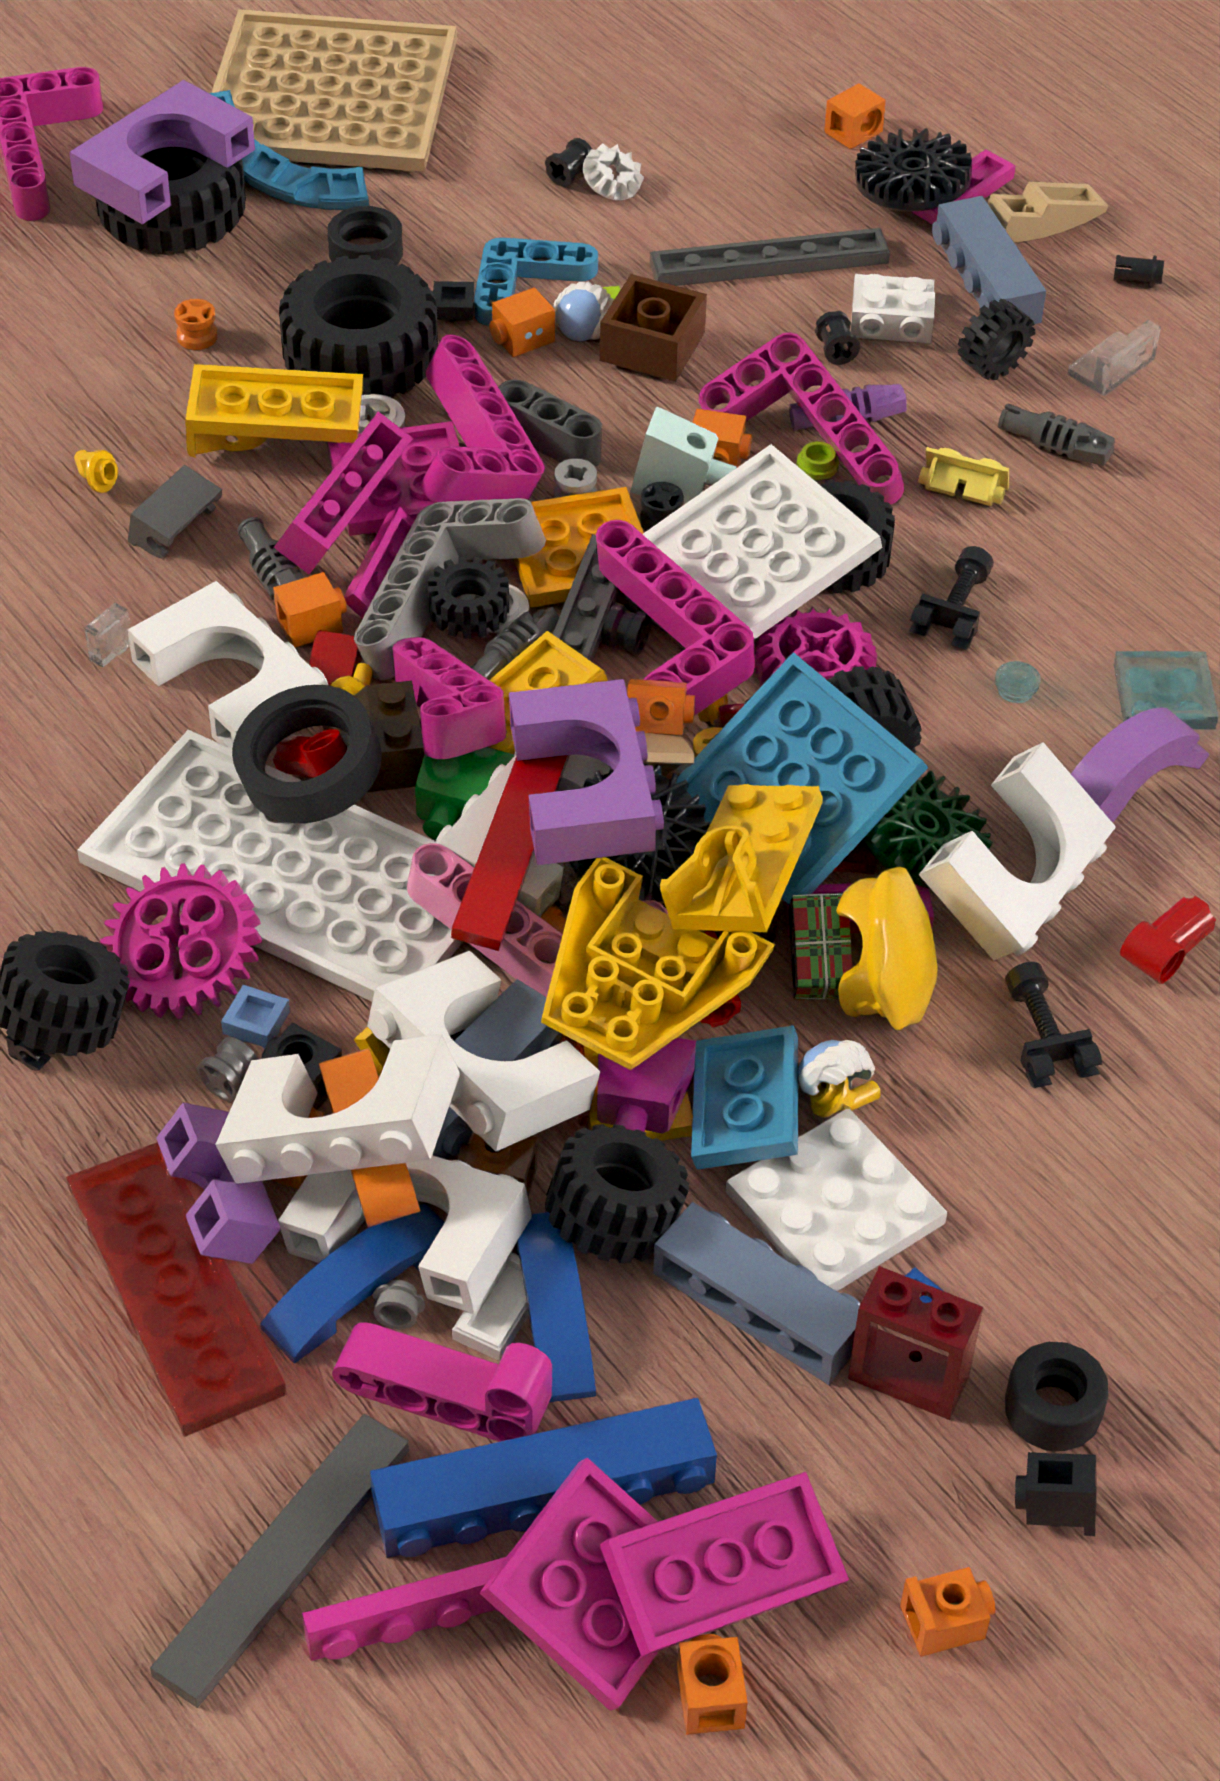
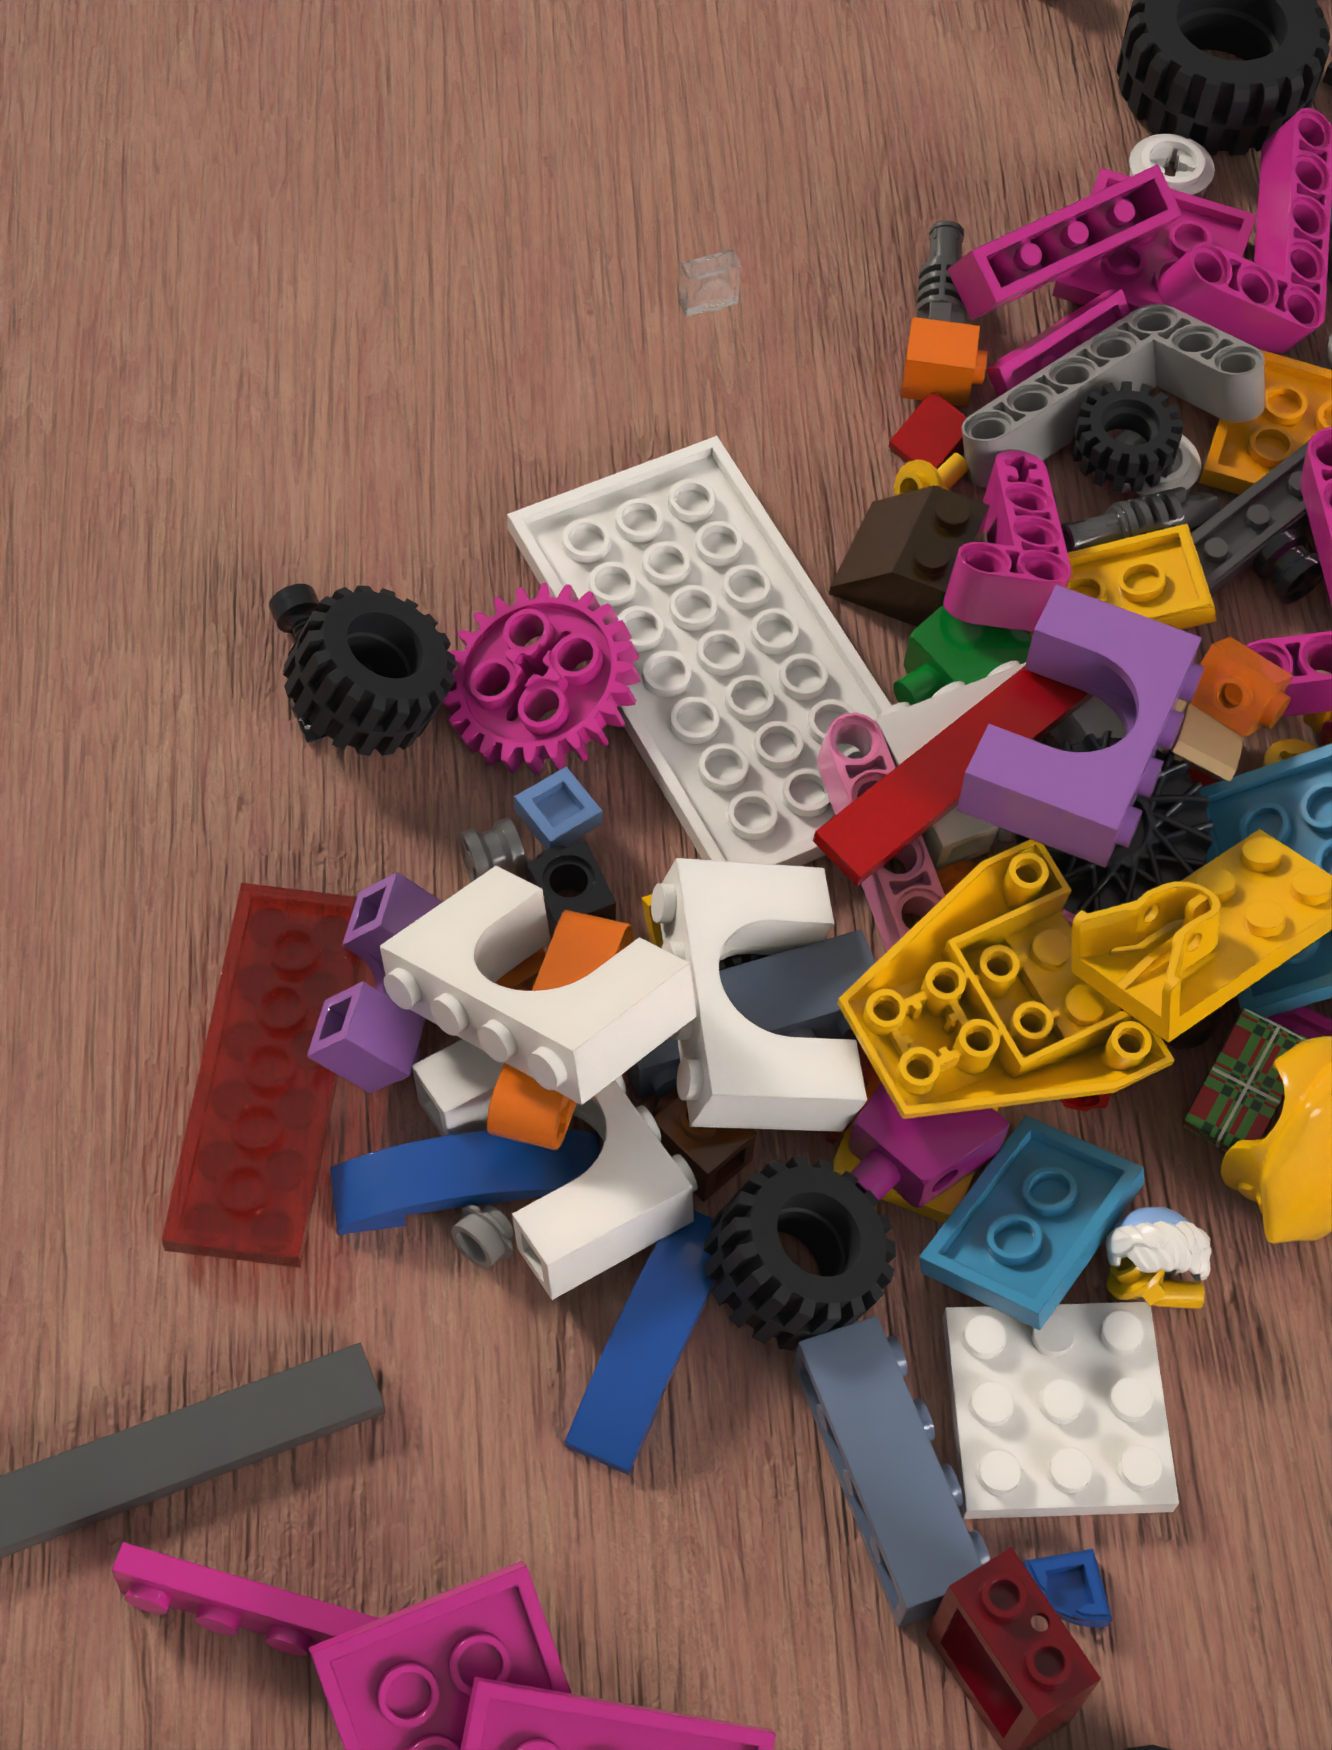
camera: 30 degrees right, 10 degrees up
(98, 469) = (828, 86): yellow plate -> none
(171, 510) = (874, 170): dark grey hinge -> none
(215, 627) = (830, 330): white arch -> none
(269, 405) = (1057, 99): yellow plate -> none
(309, 755) = (827, 544): red piece -> none
(326, 793) = (799, 477): black tyre -> none
(446, 1384) = (509, 1417): dark pink beam -> none
(498, 1315) = (585, 1313): white tile -> none
(511, 1481) = (465, 1528): blue brick -> none

